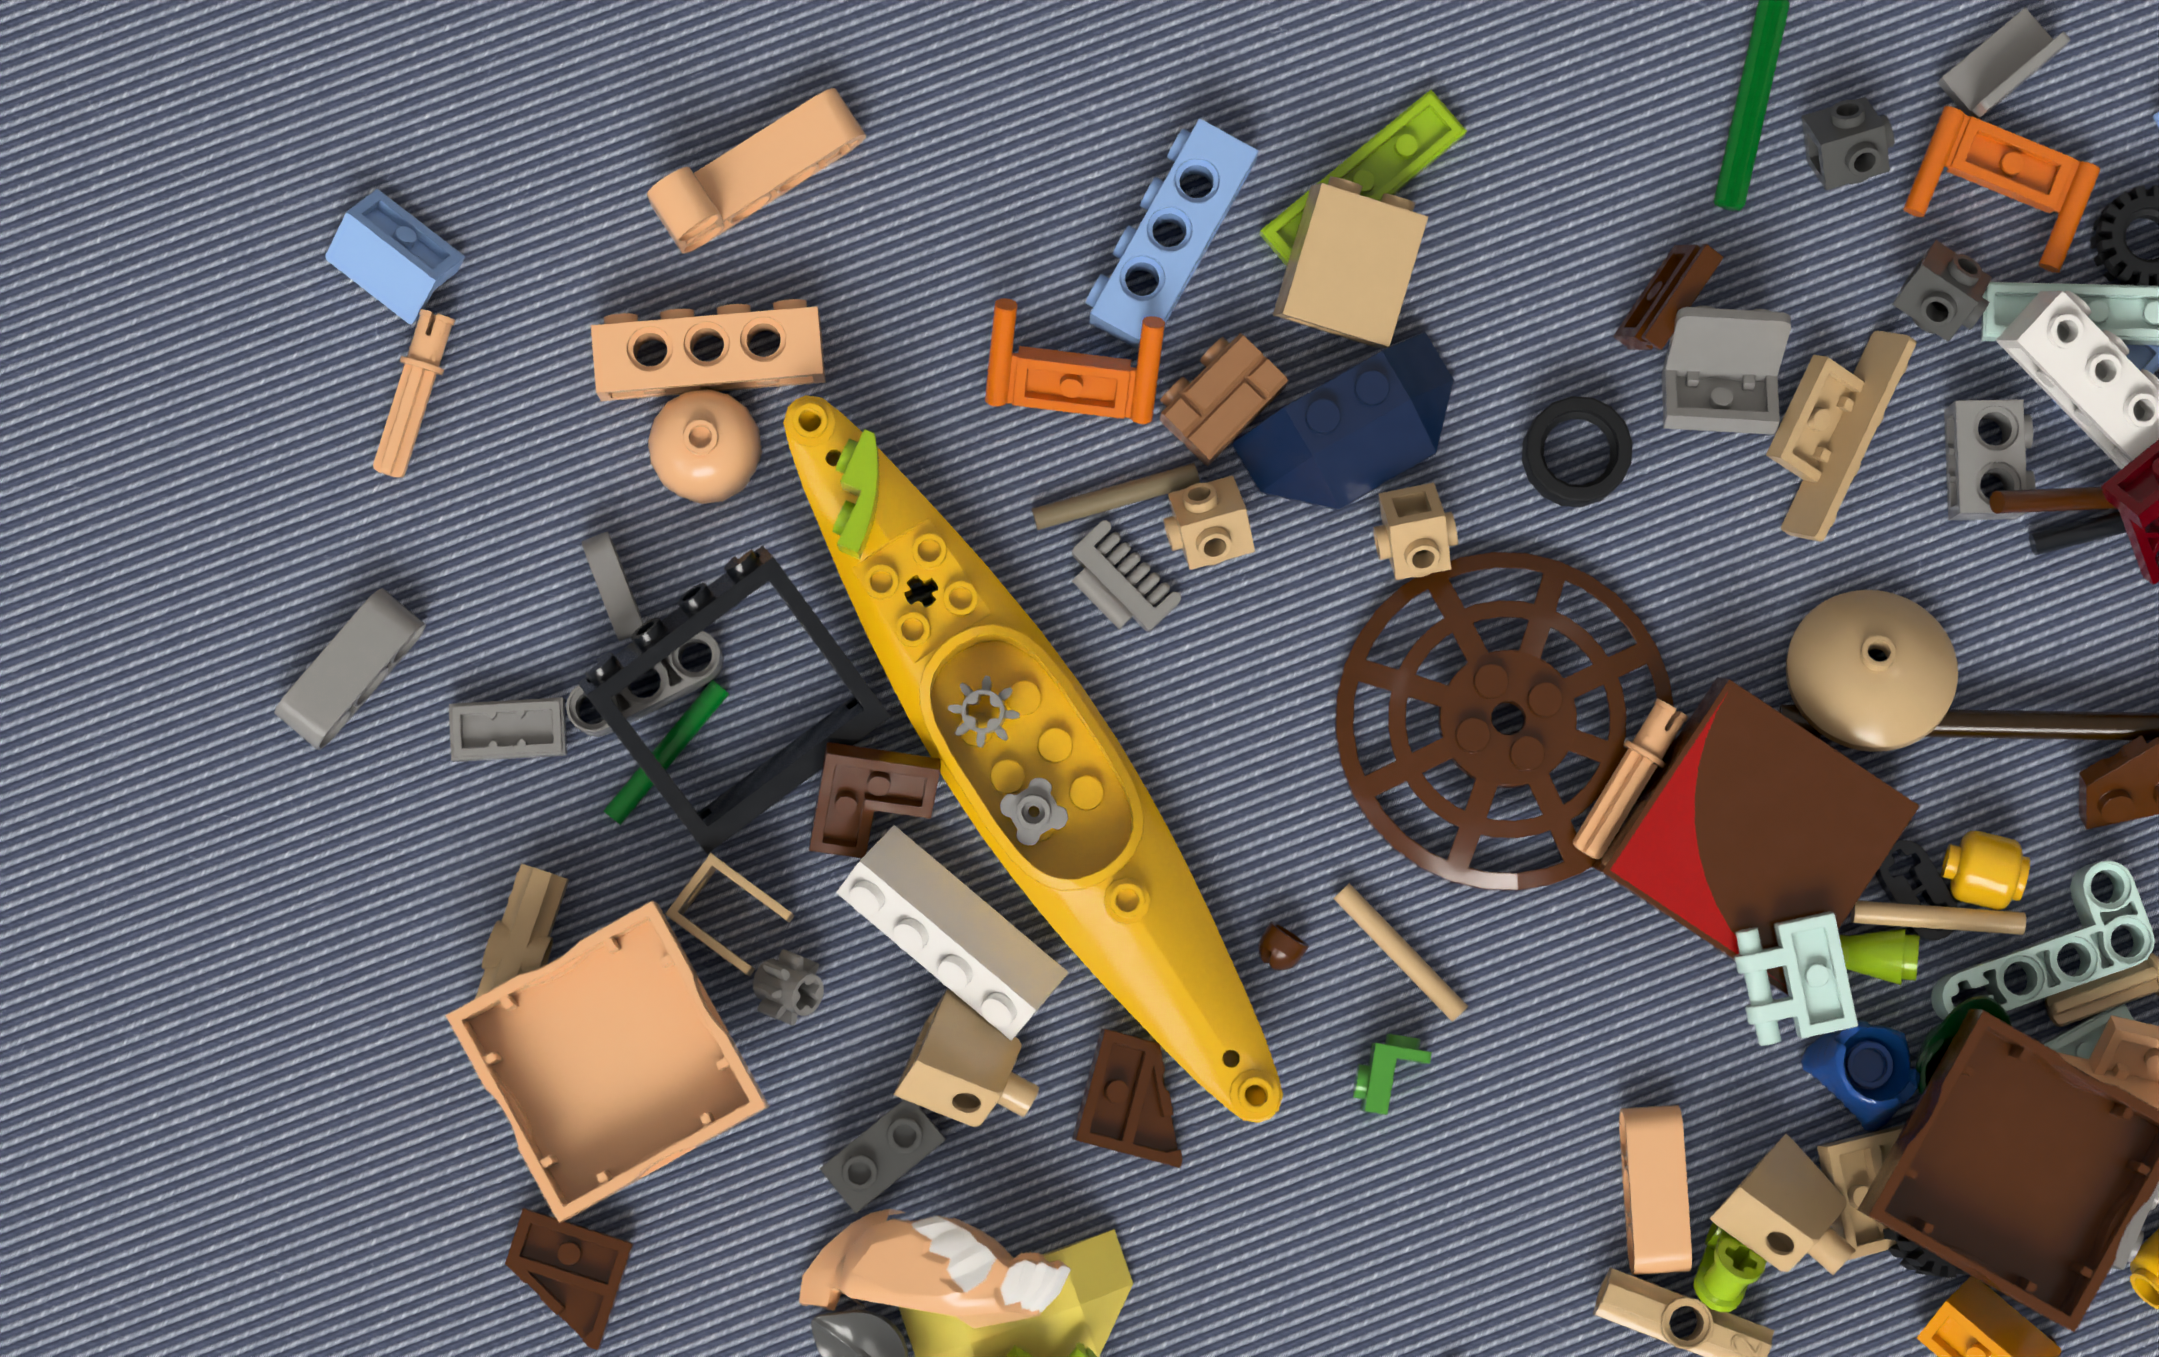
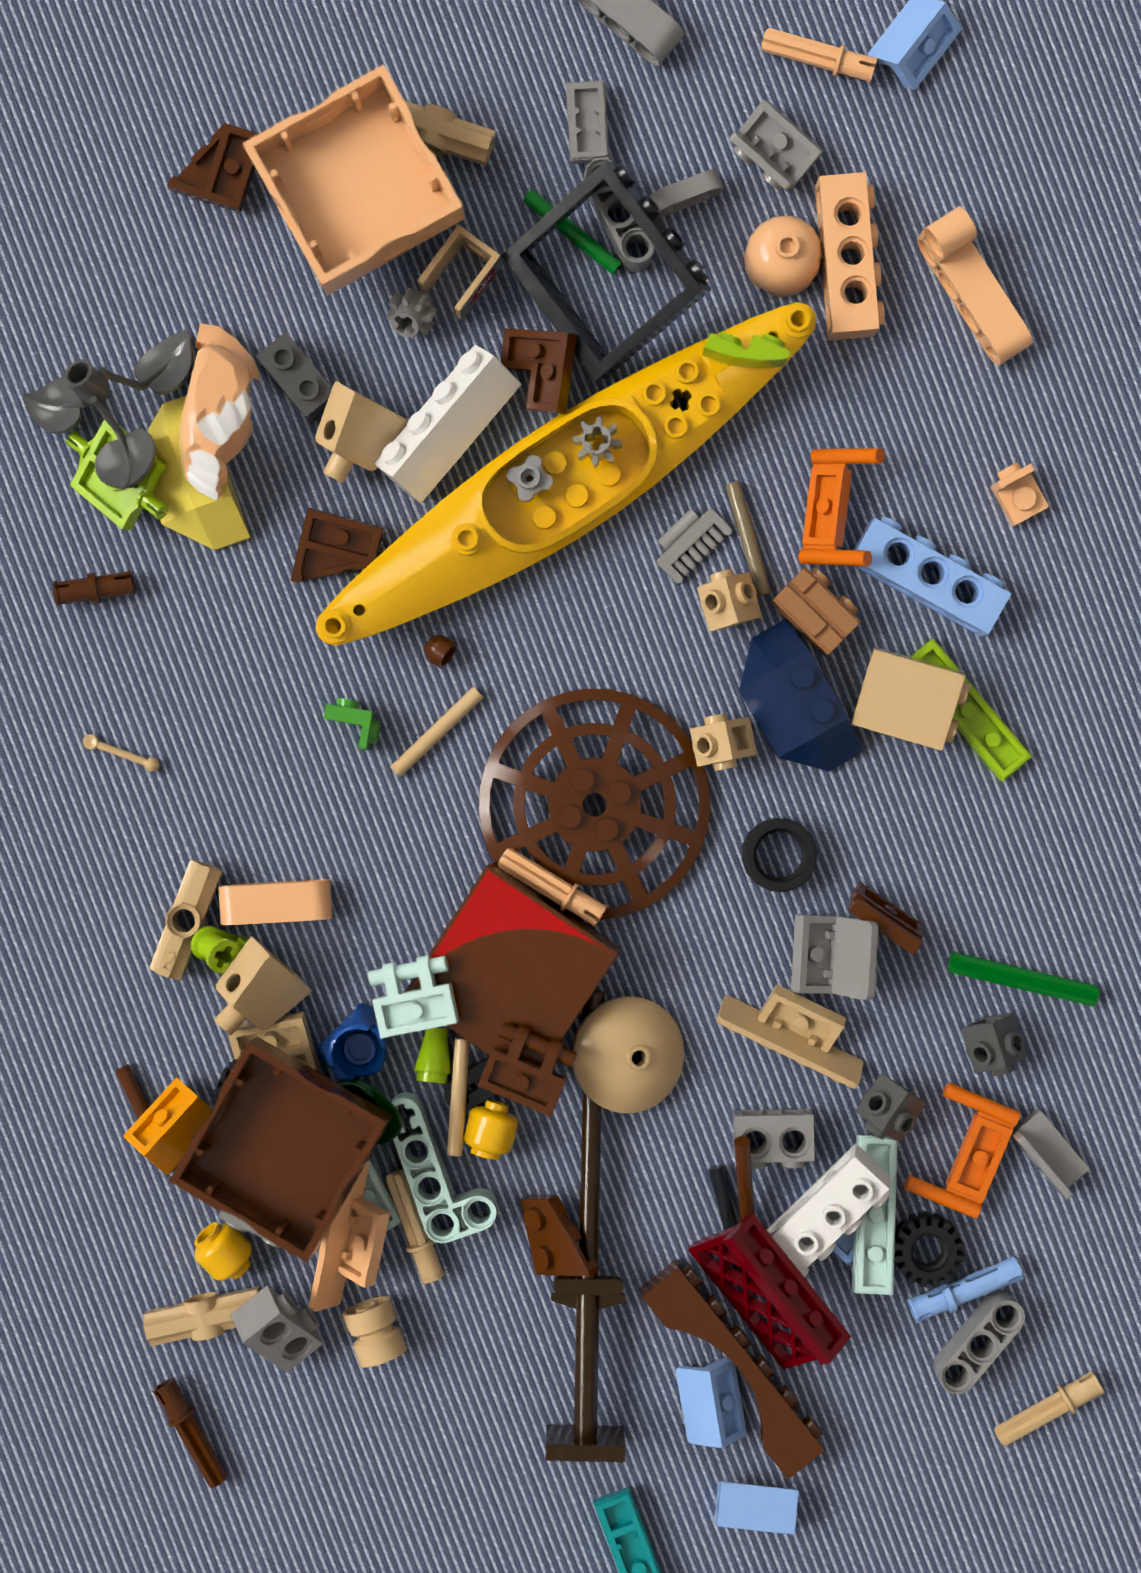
camera: 100 degrees right, 5 degrees up
(548, 456) = (775, 146): none -> light grey bracket
(1050, 107) = (1018, 493): none -> light nougat bracket
(1915, 818) = (523, 1080): none -> reddish brown plate

